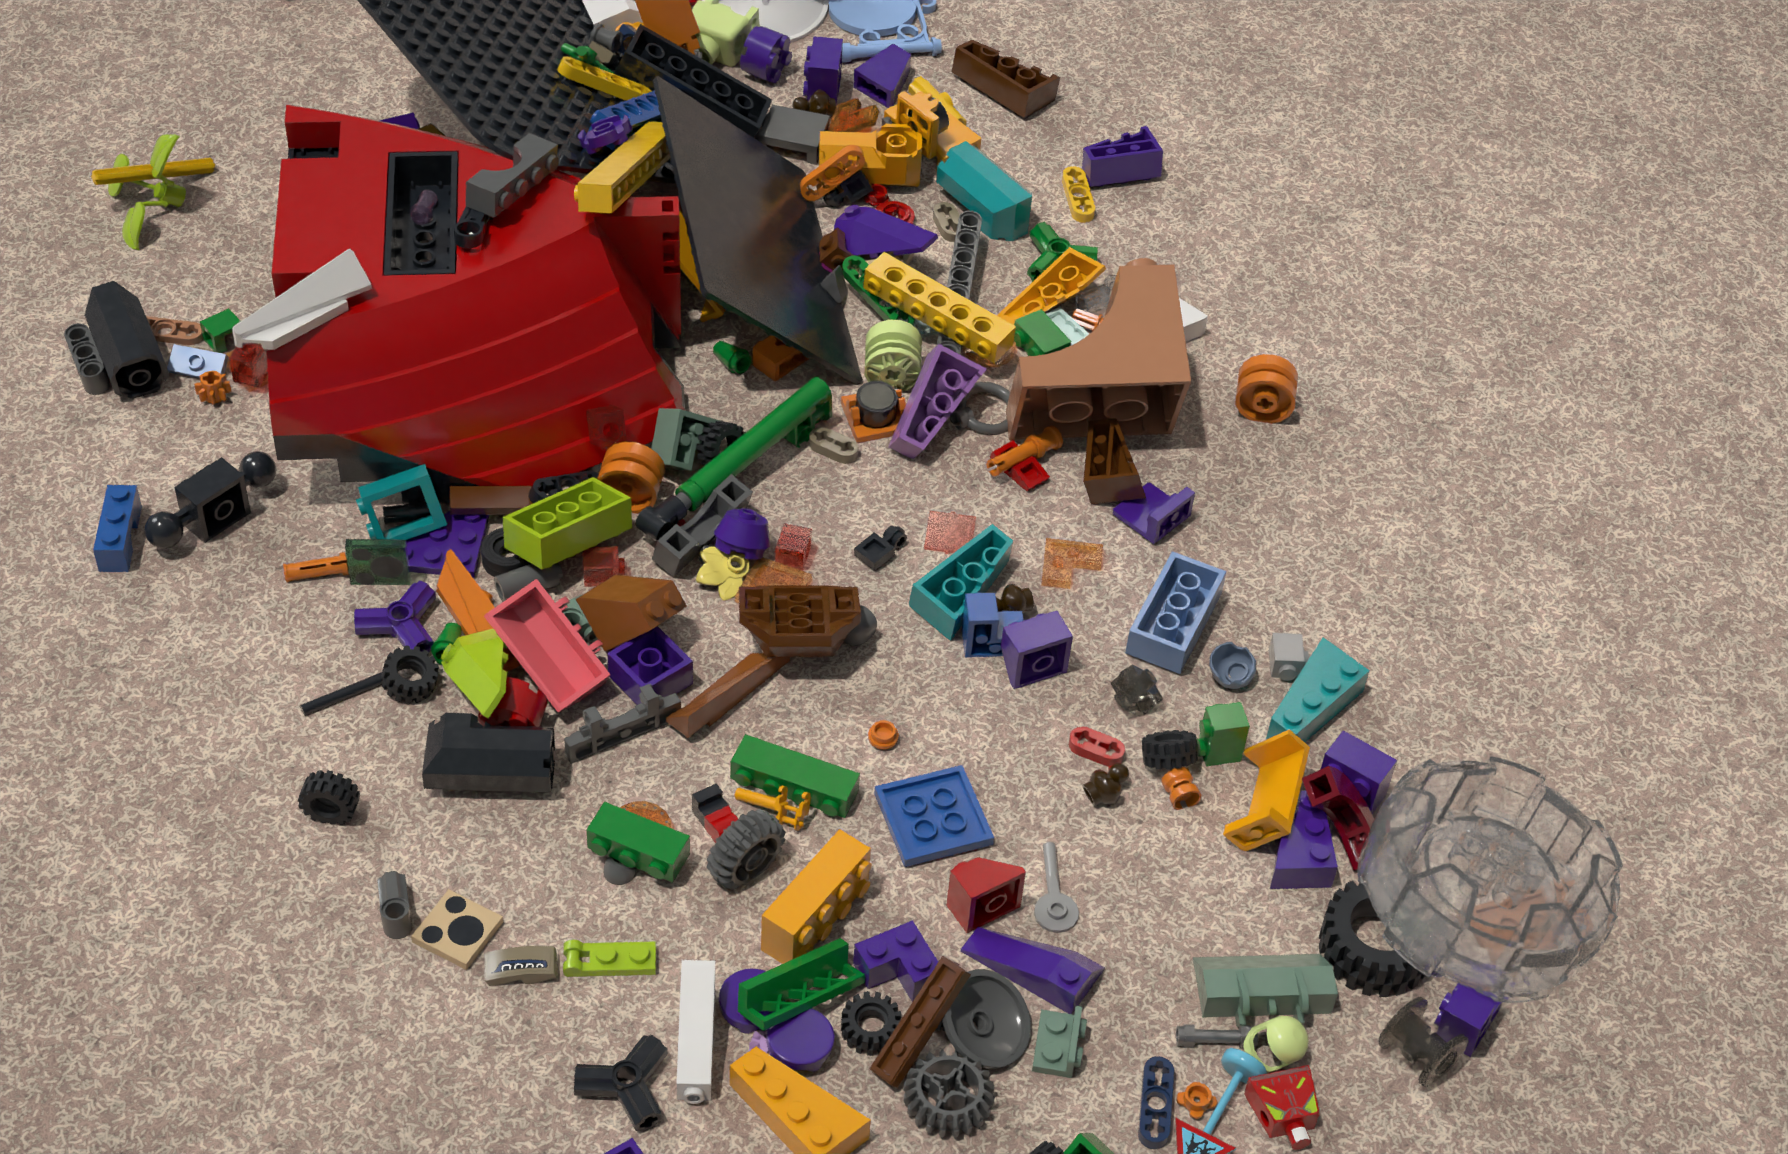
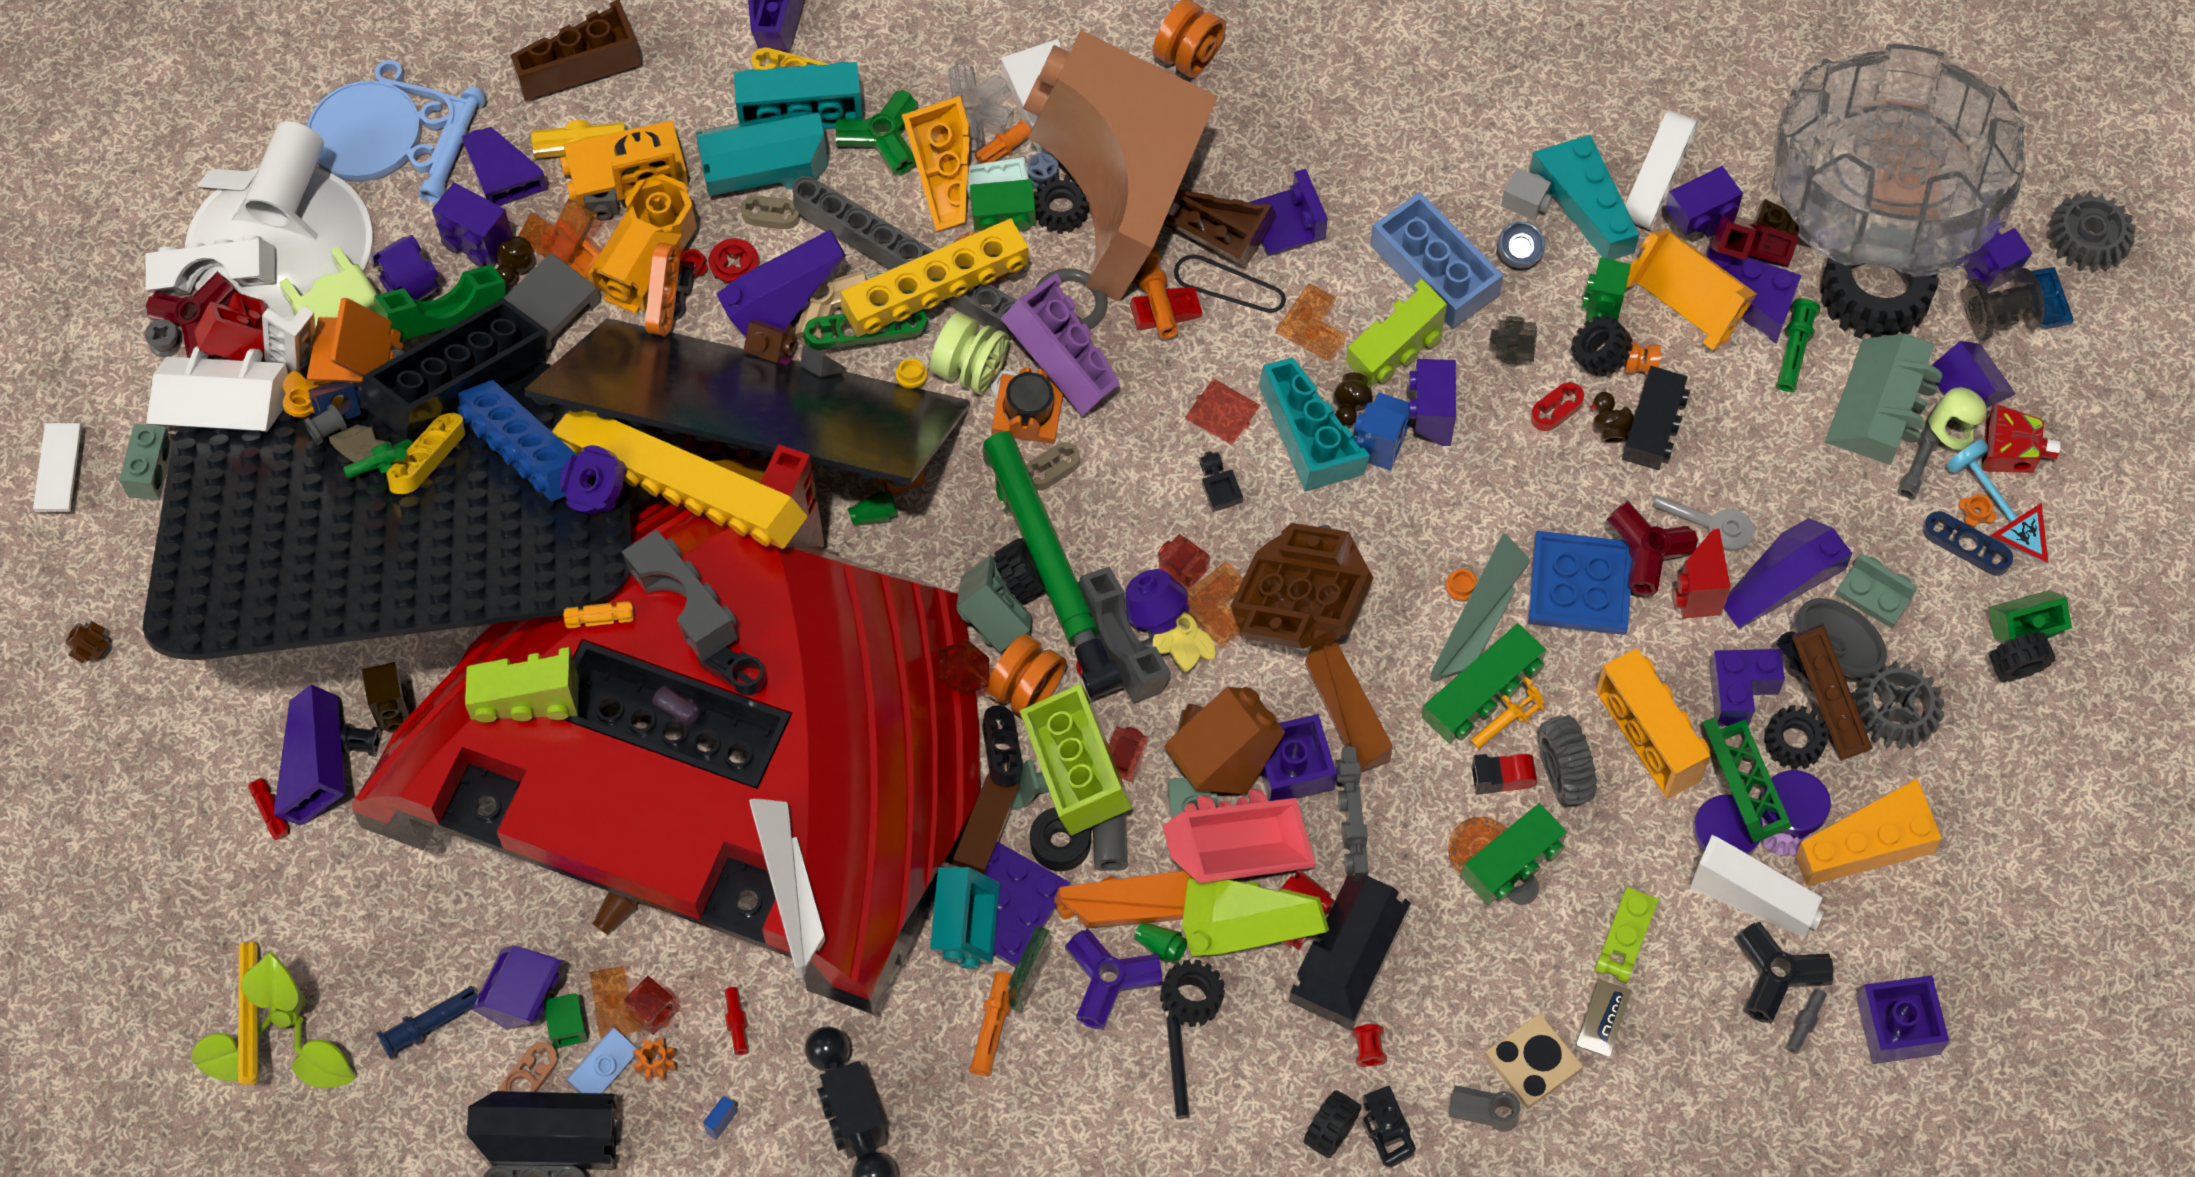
camera: 60 degrees left, 15 degrees up
(180, 437) = (720, 1117): none -> blue tile
(183, 260) = (412, 1030): none -> dark blue pin
(232, 291) = (517, 987): none -> dark purple slope
(262, 425) = (736, 1021): none -> red bar
(352, 843) = (1389, 1126): none -> black piece
(394, 127) = (523, 689): none -> lime wedge
(417, 807) = (1369, 1045): none -> red bush
(479, 148) = (598, 614): none -> light orange axle
(590, 1123) = (1806, 1021): none -> flat silver bar
(726, 54) = (414, 318): none -> green arch
(857, 338) = (911, 373): none -> yellow plate
(868, 750) = (1482, 609): none -> sand green wedge
(996, 826) = (1649, 546): none -> dark red piece
(1054, 194) = (815, 88): none -> teal brick
(1085, 522) = (1279, 291): none -> black piece
(1088, 611) = (1399, 337): none -> lime wedge
(1127, 815) = (1656, 418): none -> black brick
(1287, 897) = (1799, 331): none -> green pin
(1338, 1050) = (1972, 368): none -> dark purple slope
(1386, 731) = (1660, 167): none -> white beam
(1466, 1090) = (2056, 307): none -> clear blue tile
(1540, 1094) = (2111, 230): none -> dark grey gear

